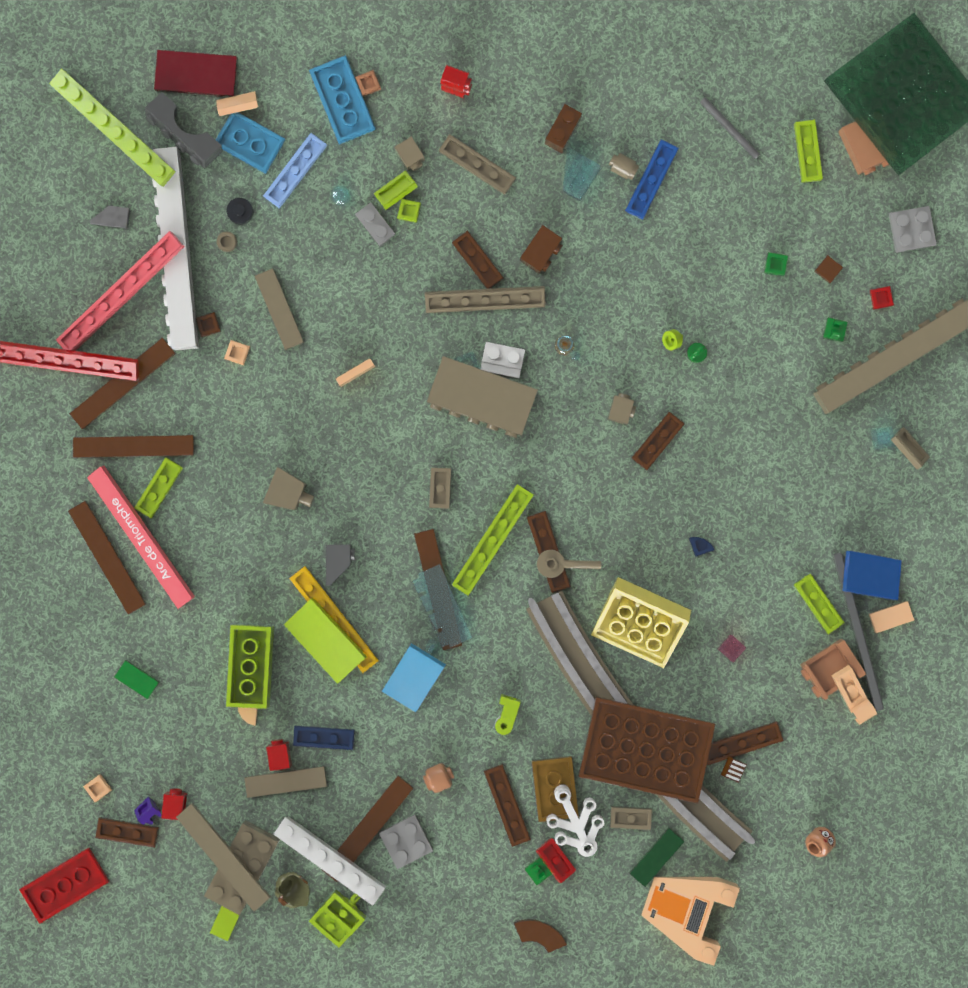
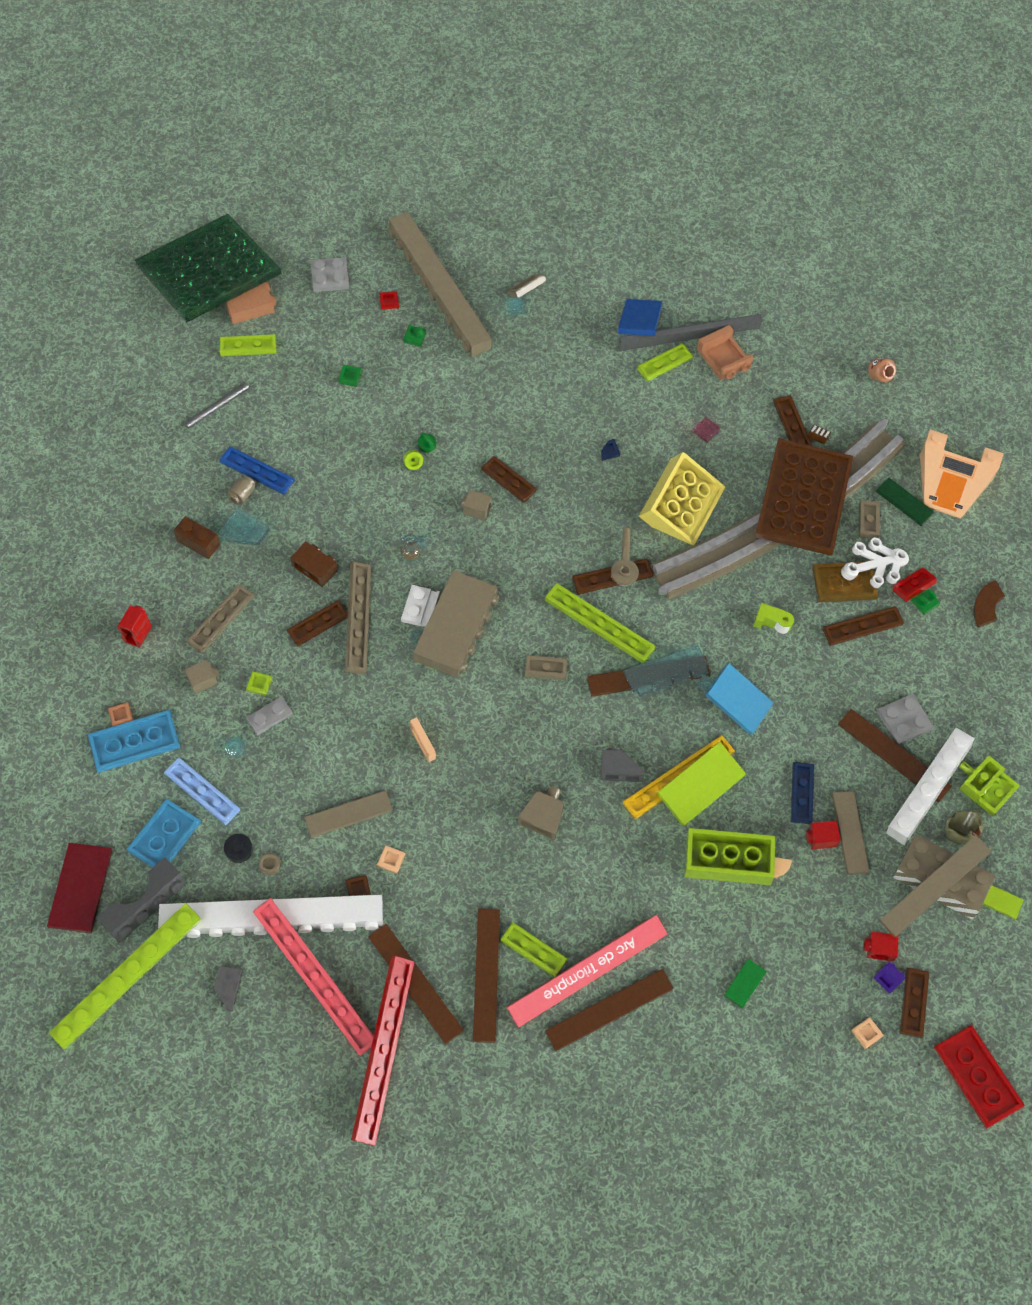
camera: 90 degrees left, 25 degrees down
(237, 103) = (121, 843): light nougat tile -> none
(395, 190) = (236, 693): lime tile -> none
(438, 778) = (839, 682): nougat head -> none
(828, 269) = (358, 337): reddish brown tile -> none
(854, 694) = (748, 338): light nougat plate -> none
(891, 617) = (677, 309): light nougat tile -> none

